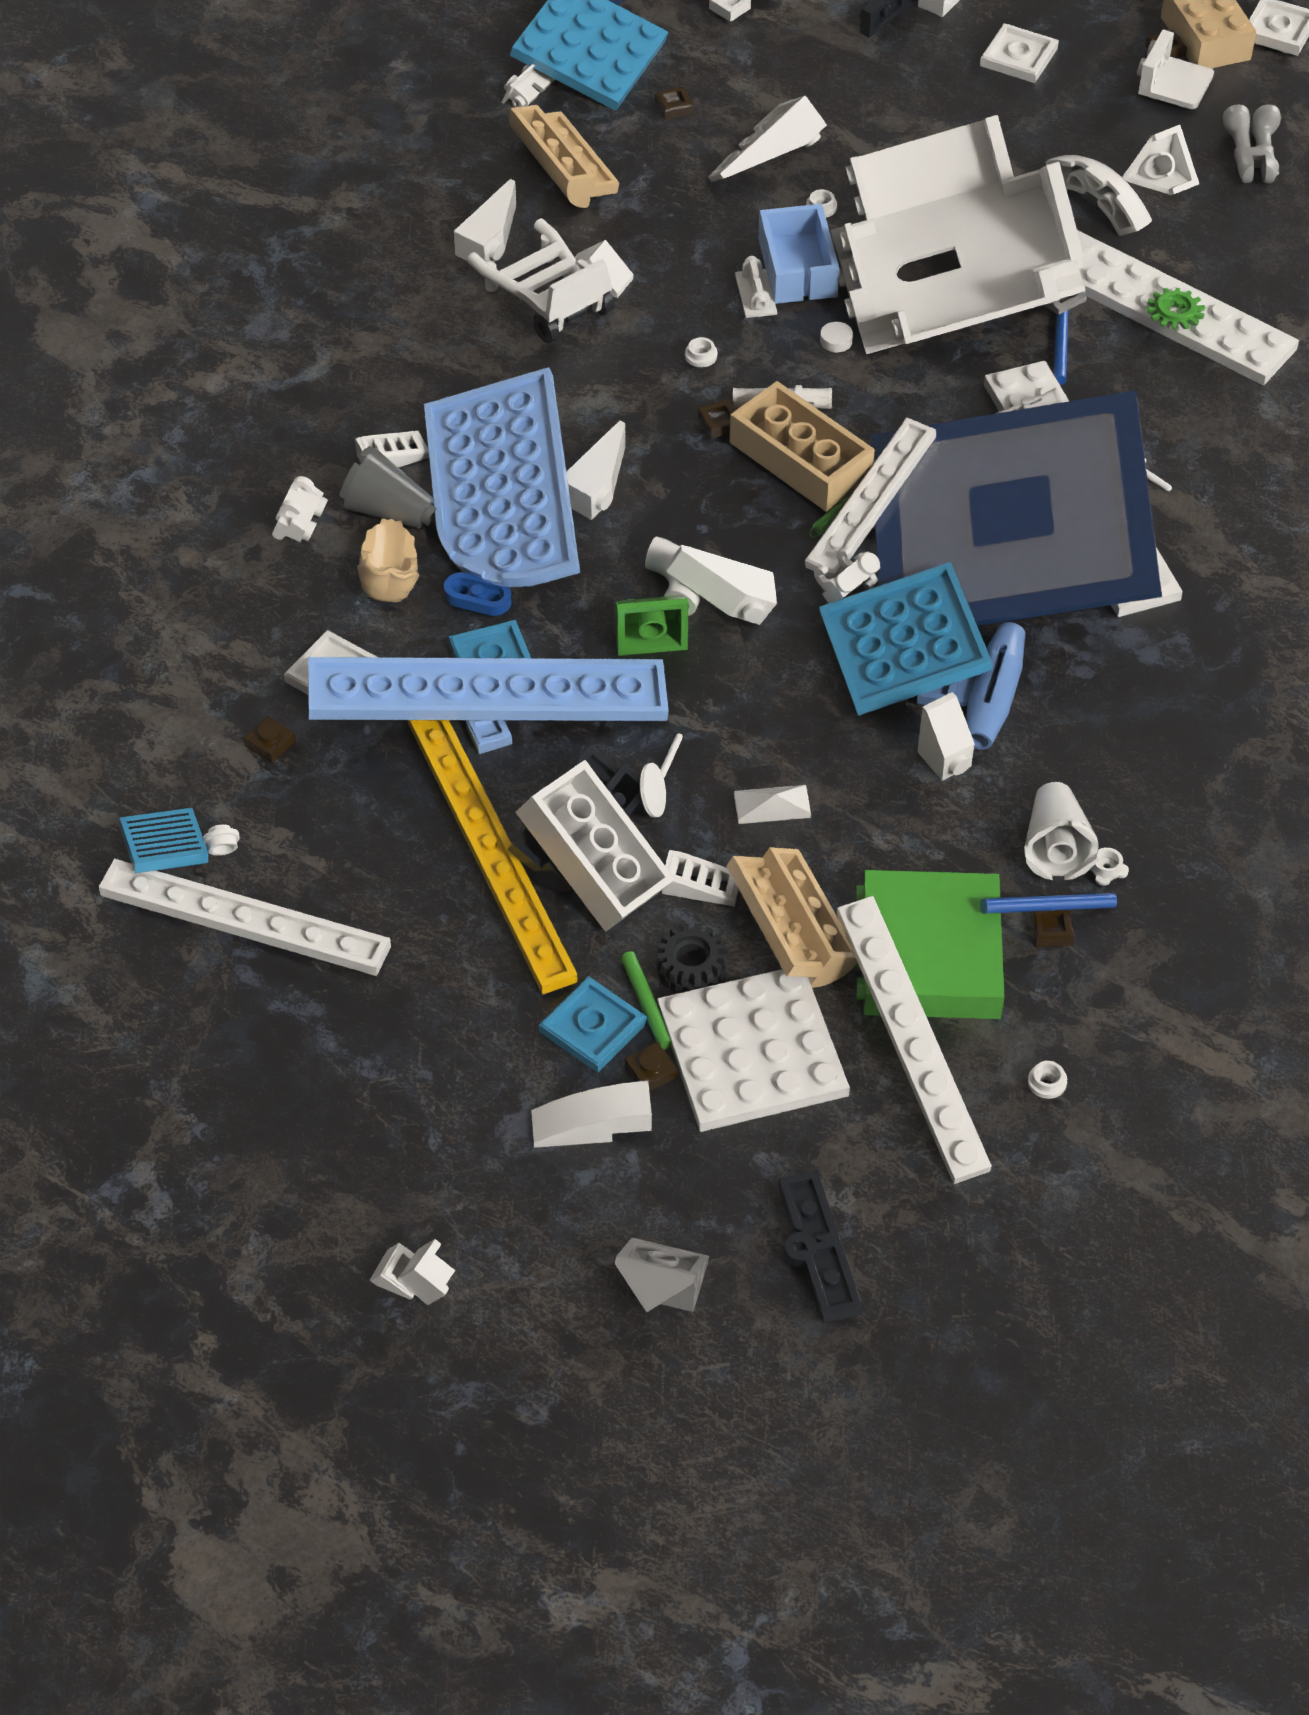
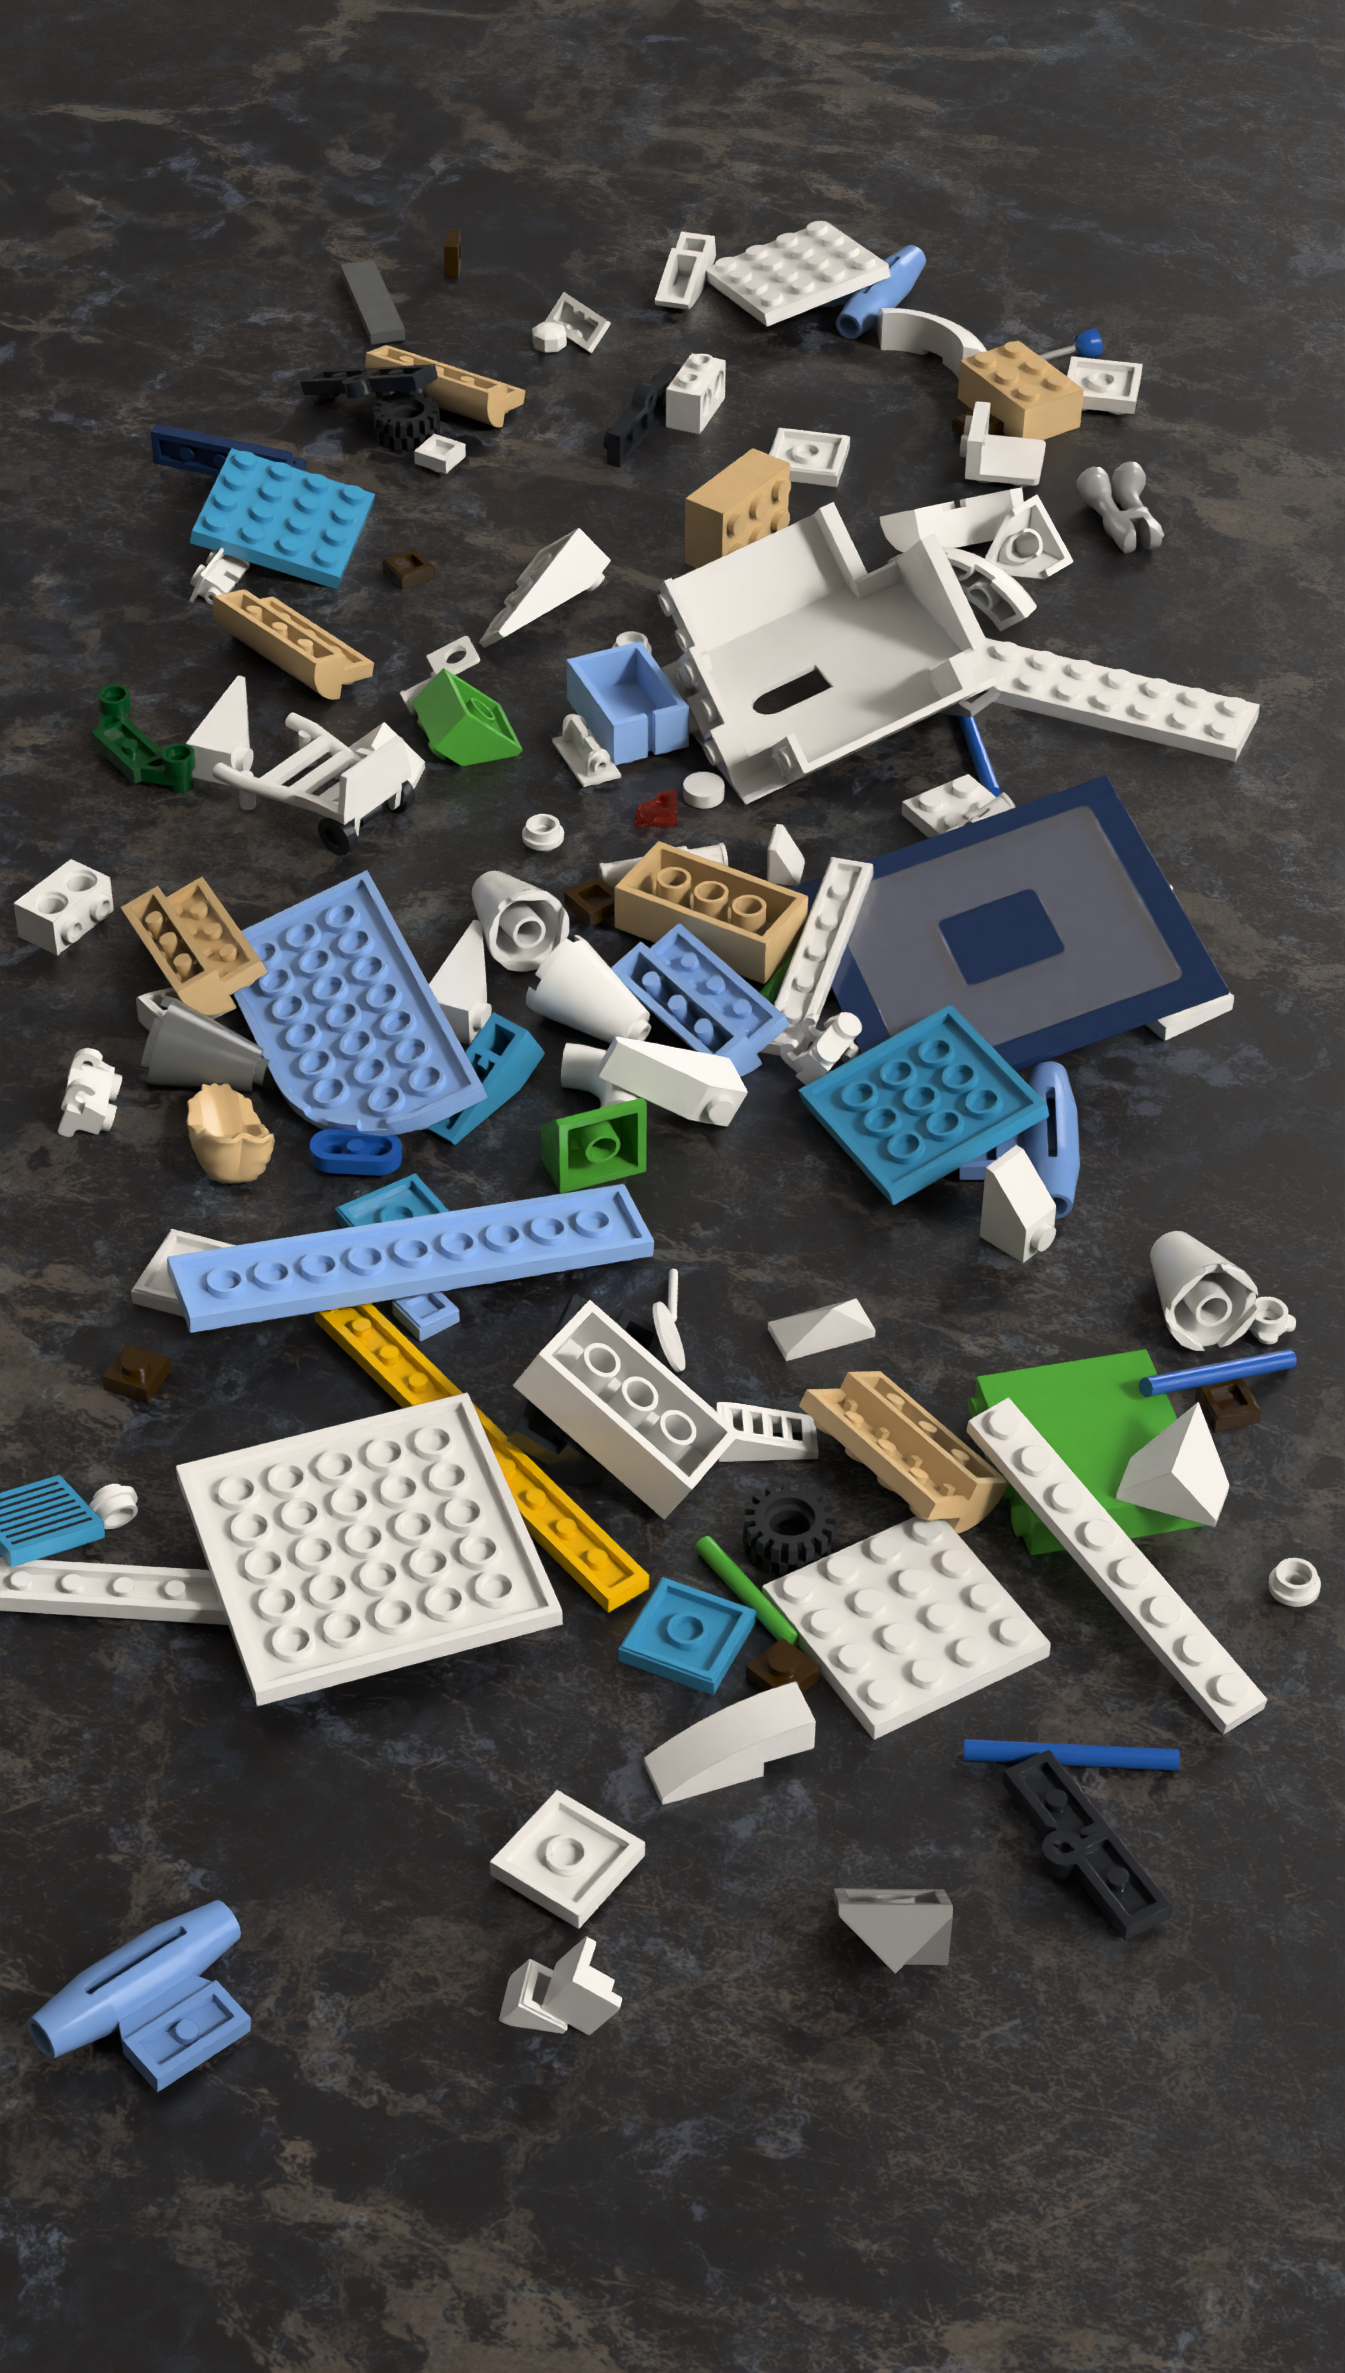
camera: 15 degrees left, 10 degrees down
(138, 1212) = (154, 1999): none -> medium blue plate
(327, 351) = (64, 907): none -> white brick
(381, 911) = (366, 1548): none -> white plate
(408, 404) = (195, 945): none -> tan brick
(417, 226) = (133, 751): none -> dark green plate
(451, 1174) = (567, 1859): none -> white plate
(599, 547) = (503, 1062): none -> dark azure slope
(654, 427) = (518, 920): none -> white cone
(662, 210) = (438, 662): none -> white bracket
(671, 247) = (464, 722): none -> bright green slope
(685, 499) = (587, 994): none -> white cone
(768, 519) = (701, 998): none -> light blue brick
(796, 349) = (659, 811): none -> clear red tile
(836, 1175) = (1073, 1754): none -> blue bar
(876, 408) = (784, 859): none -> white slope
(939, 96) = (737, 507): none -> tan brick
(983, 979) = (1178, 1472): none -> white slope
(1106, 134) = (955, 527): none -> white brick
(1189, 309) = (1122, 698): bright green gear -> none

